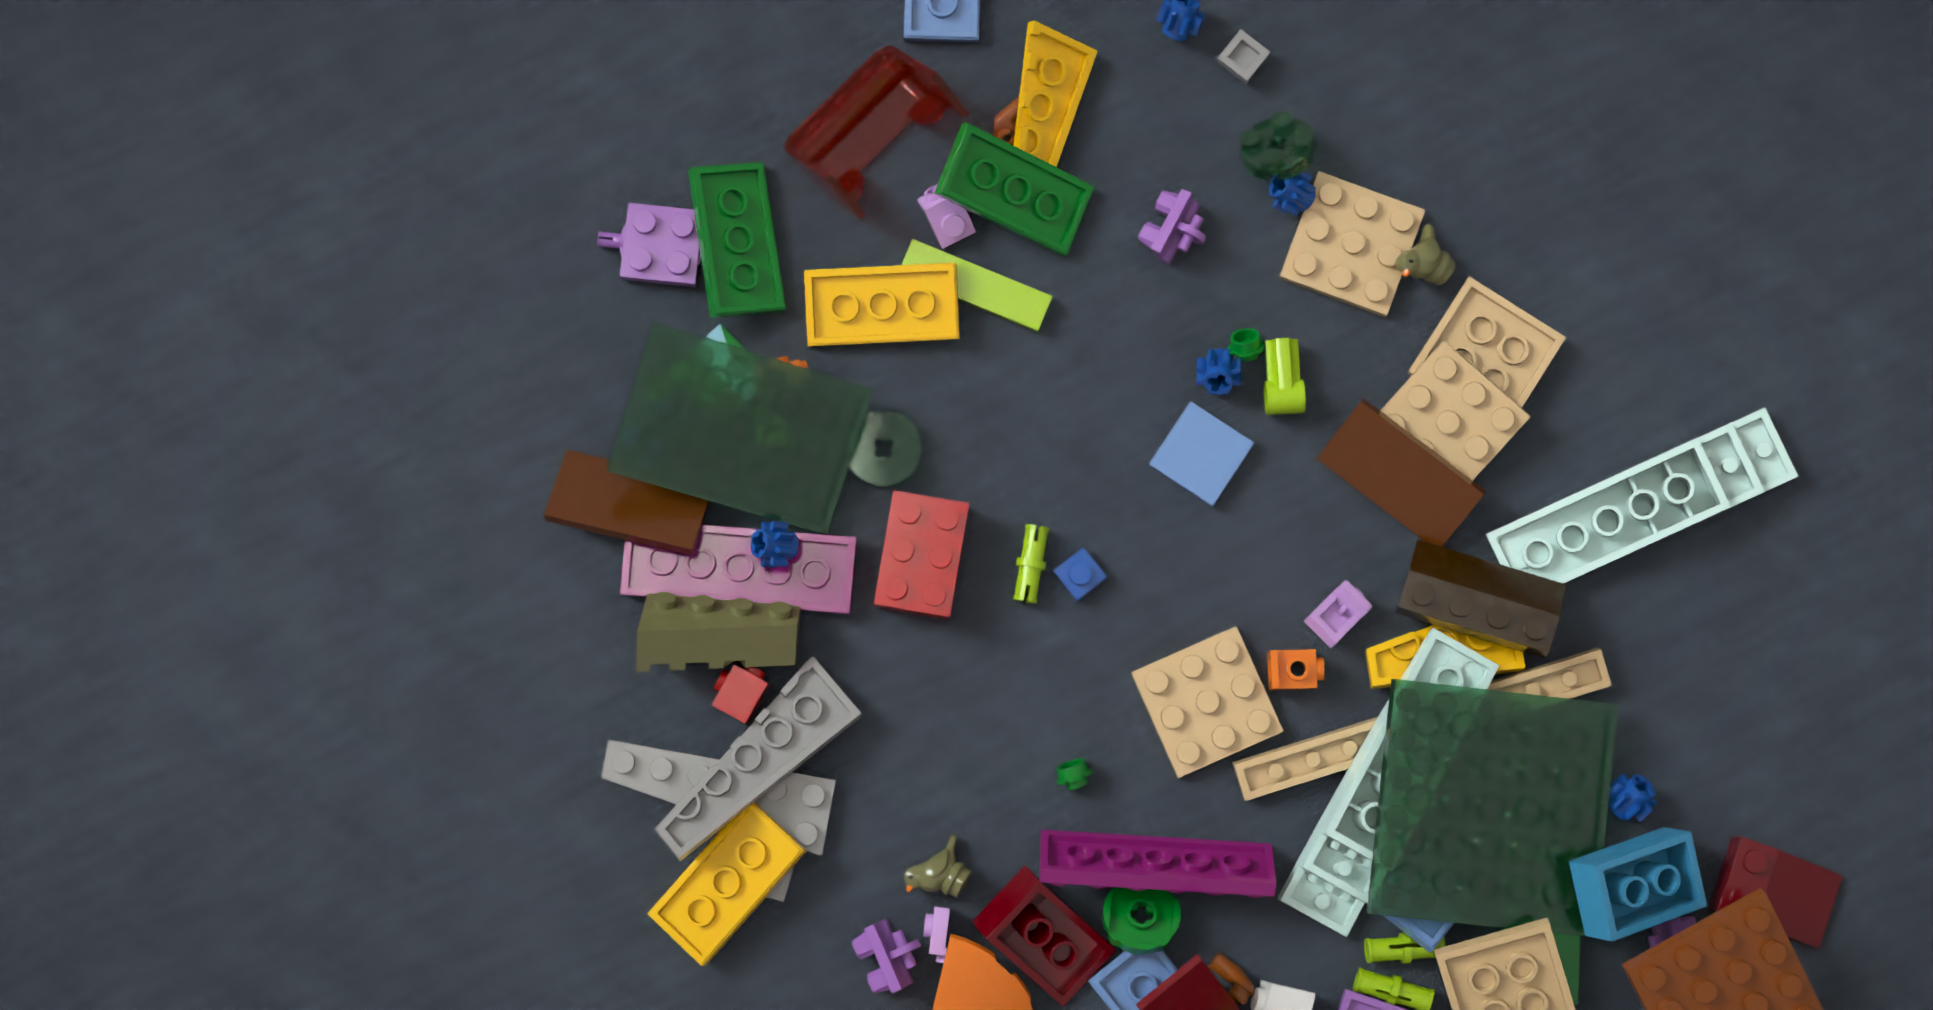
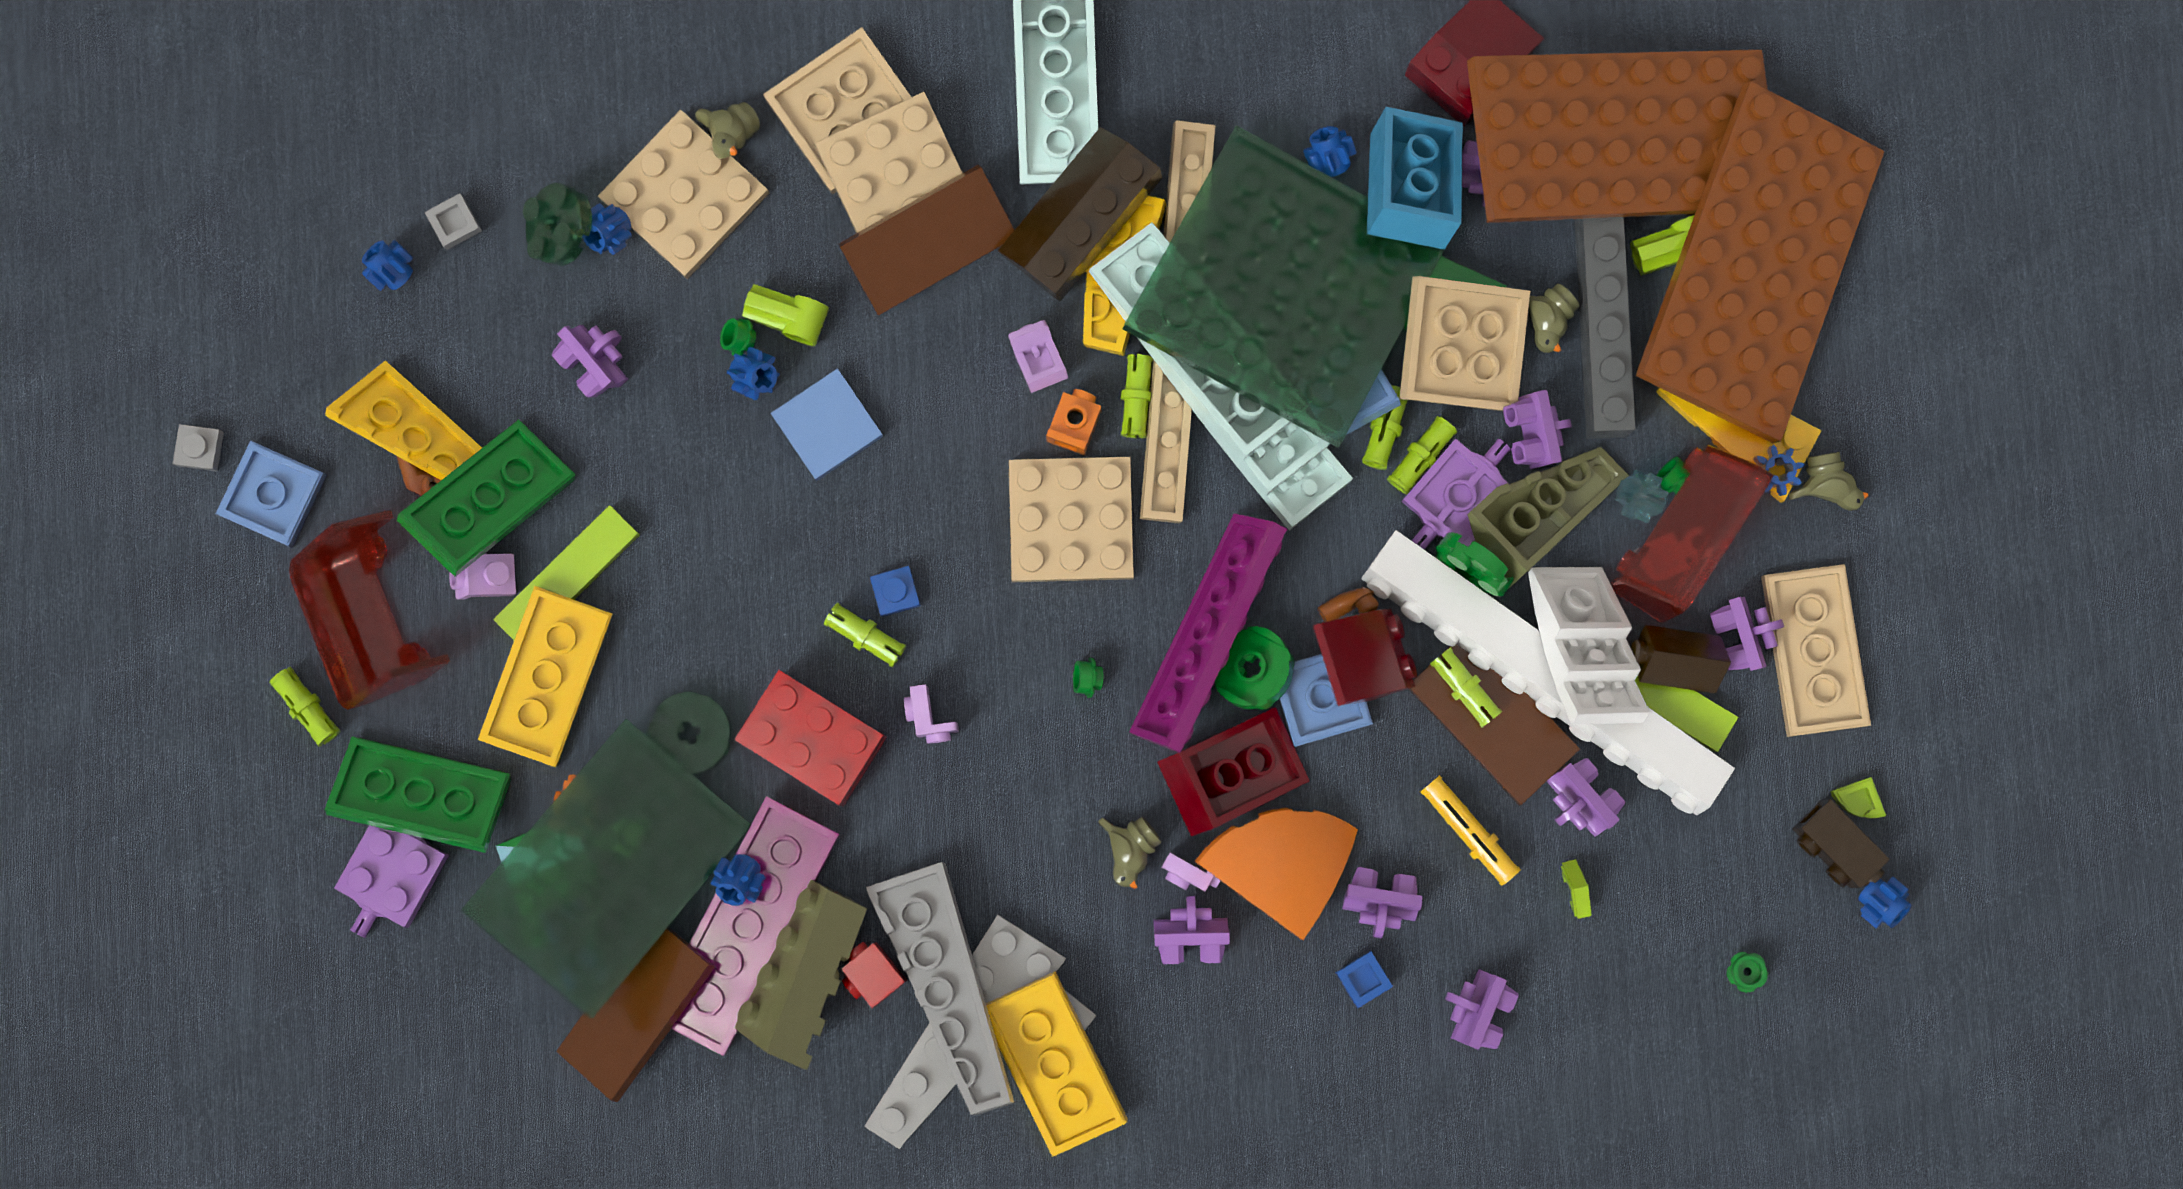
camera: 65 degrees left, 0 degrees up
(772, 111) = (304, 706): none -> lime pin
(984, 638) = (919, 710): none -> lavender bracket
(1339, 715) = (1136, 396): none -> lime pin

